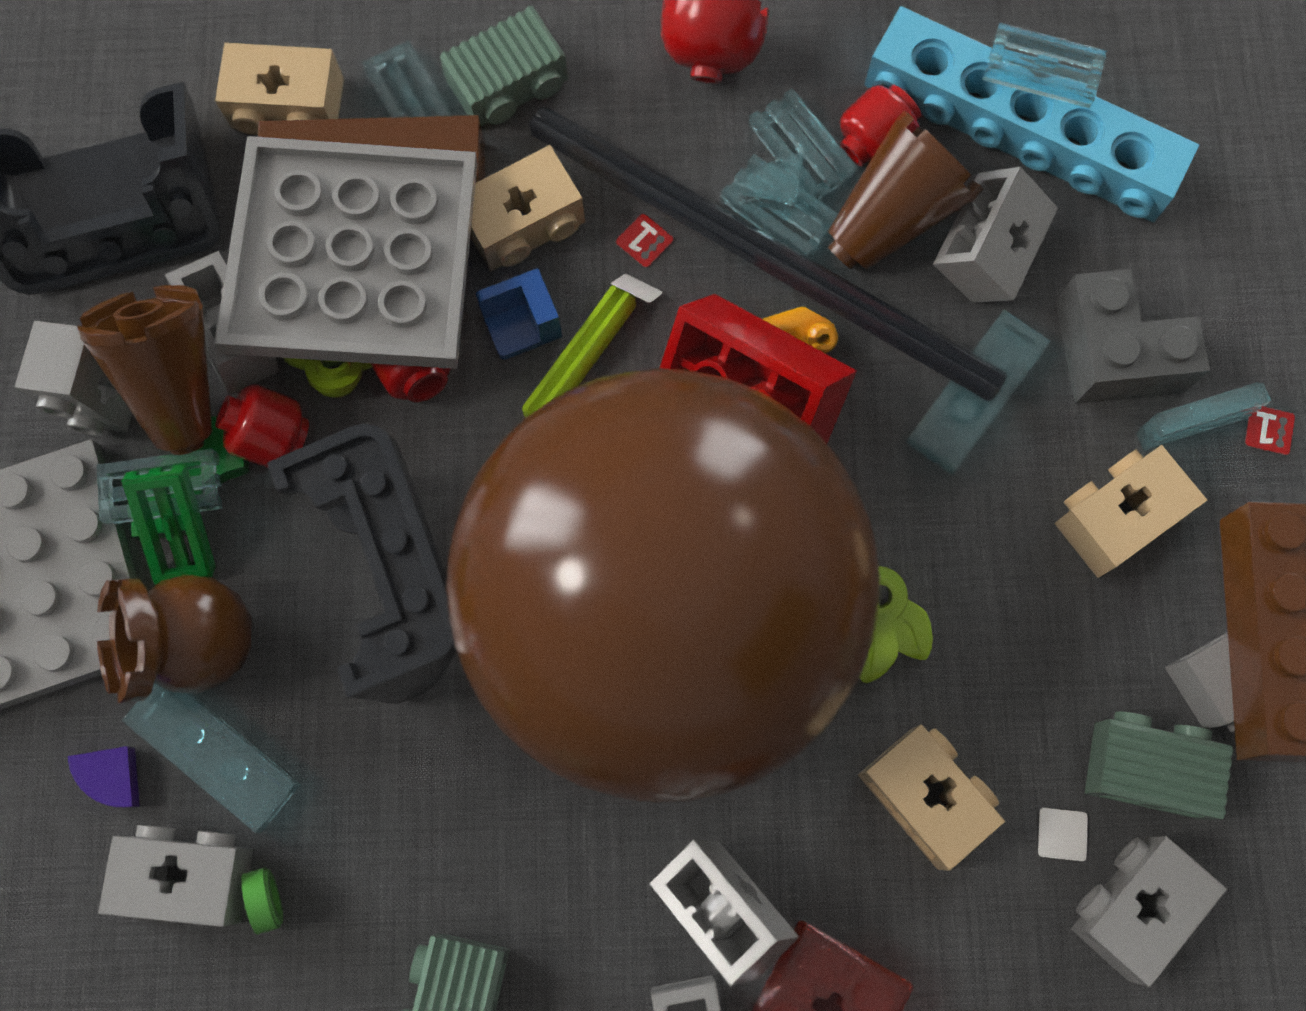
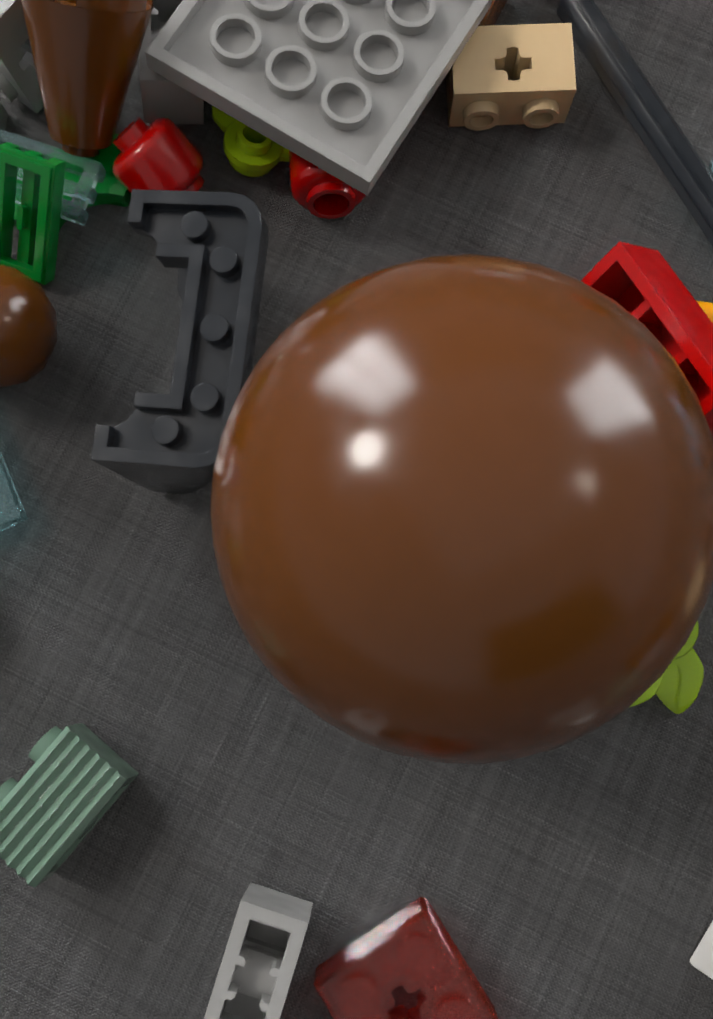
camera: 30 degrees right, 5 degrees up
(519, 314) = (455, 177): blue panel -> none
(583, 348) = (522, 231): lime axle -> none
(637, 288) = (582, 209): white sticker -> none
(644, 240) = (613, 168): red sticker -> none
(723, 911) = (353, 855): light grey brick -> none
(940, 831) = (610, 894): tan brick -> none

